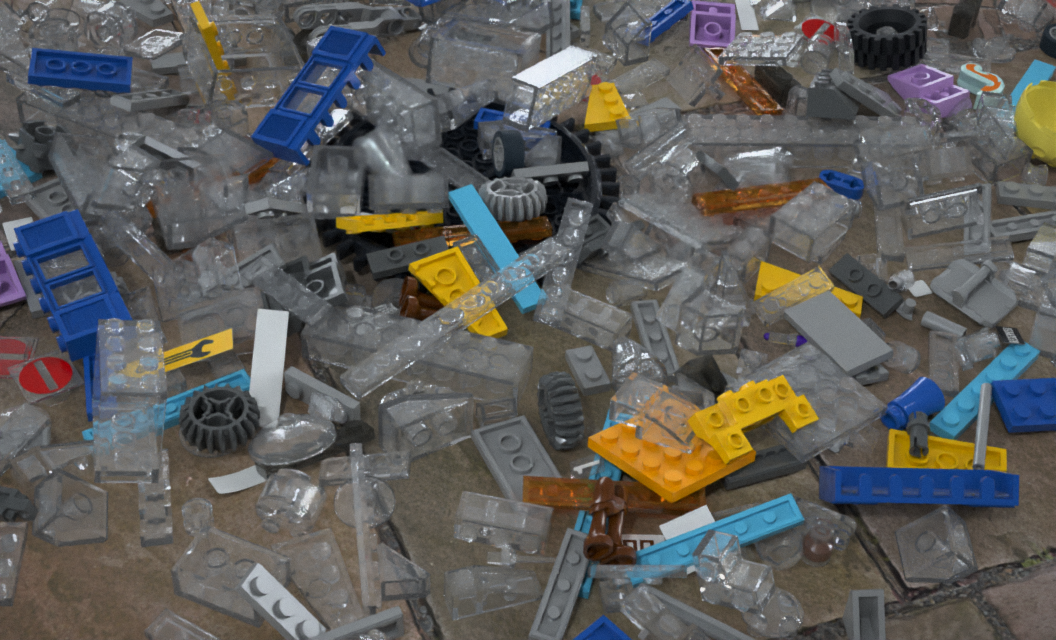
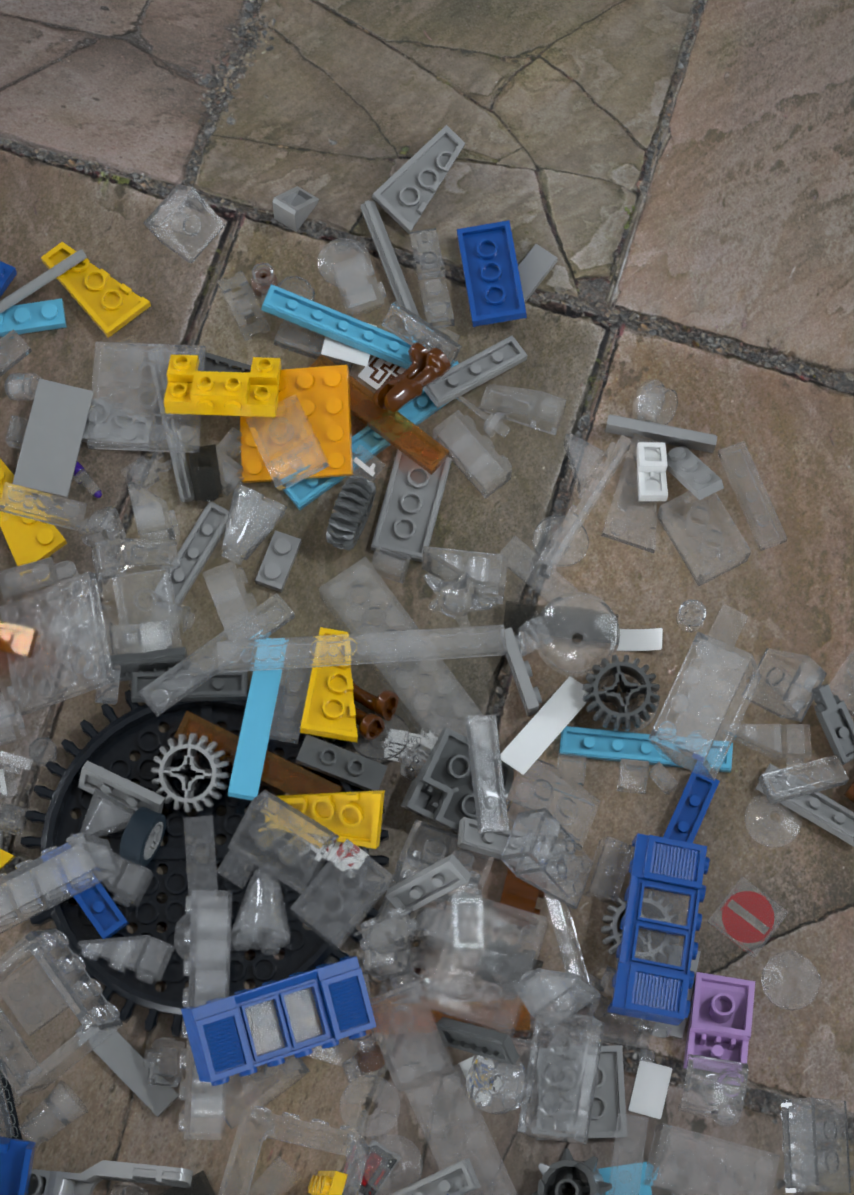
camera: 140 degrees left, 30 degrees up
(46, 378) = (732, 850): piece -> none
(198, 350) = (616, 790): yellow sticker -> none
(290, 503) = (621, 567): clear brick -> none
(321, 596) = (652, 471): none -> white slope
(918, 431) = (94, 308): dark grey pin -> none
(918, 485) = (156, 260): blue window -> none
(921, 396) = (67, 340): blue plant -> none

